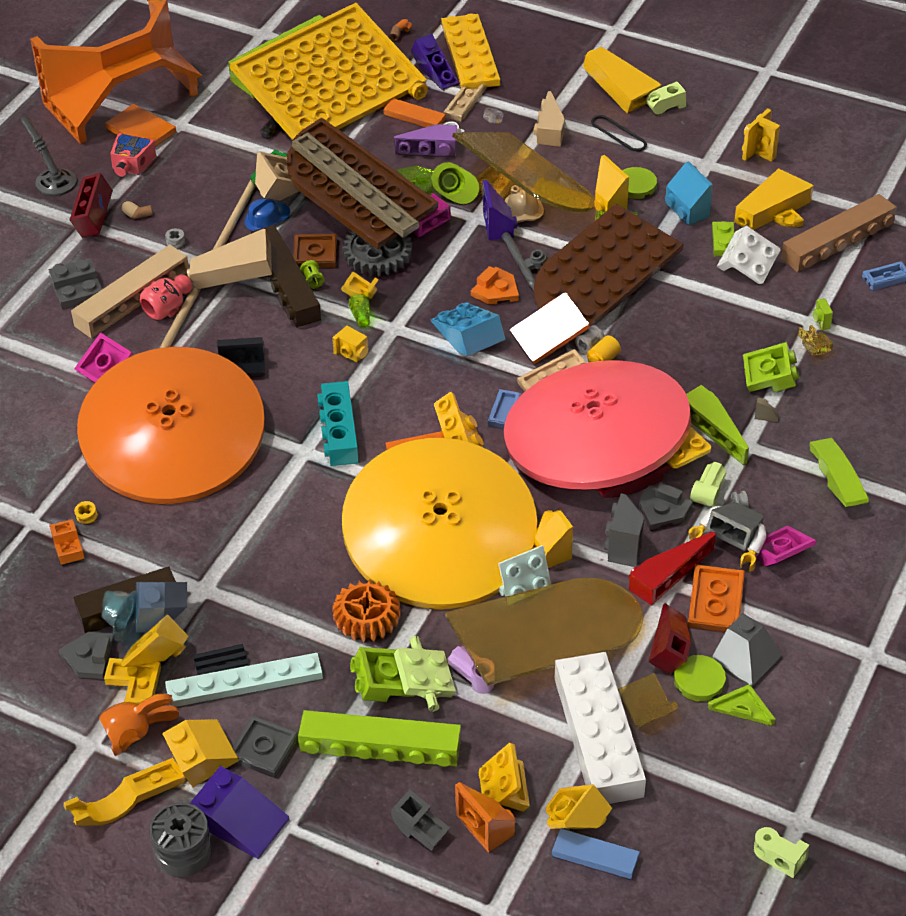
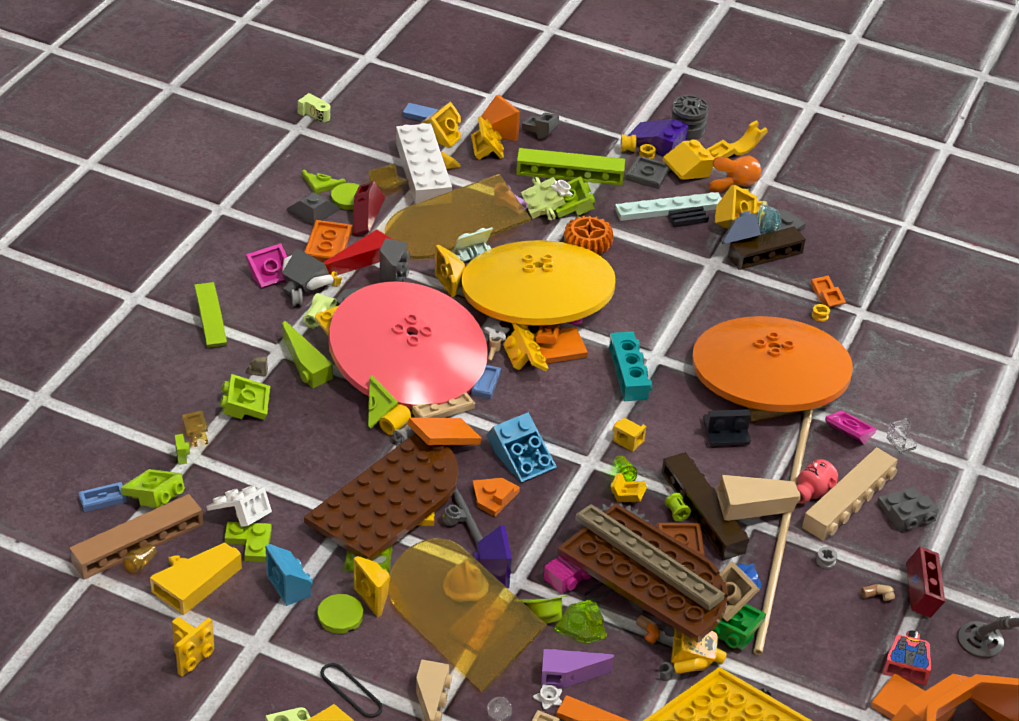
camera: 175 degrees right, 5 degrees down
(52, 356) = (899, 436): none -> clear panel
(259, 777) = (647, 151): none -> yellow bush
(286, 792) = (628, 143): none -> yellow wheel
(393, 660) = (562, 187): none -> white plate
(497, 448) = (493, 347): none -> tan hand
(560, 747) = (450, 163): none -> yellow slope
(620, 355) = (379, 402): none -> lime tile
(830, 210) = (139, 558): none -> clear yellow cone
(838, 271) = (154, 487): none -> lime plate

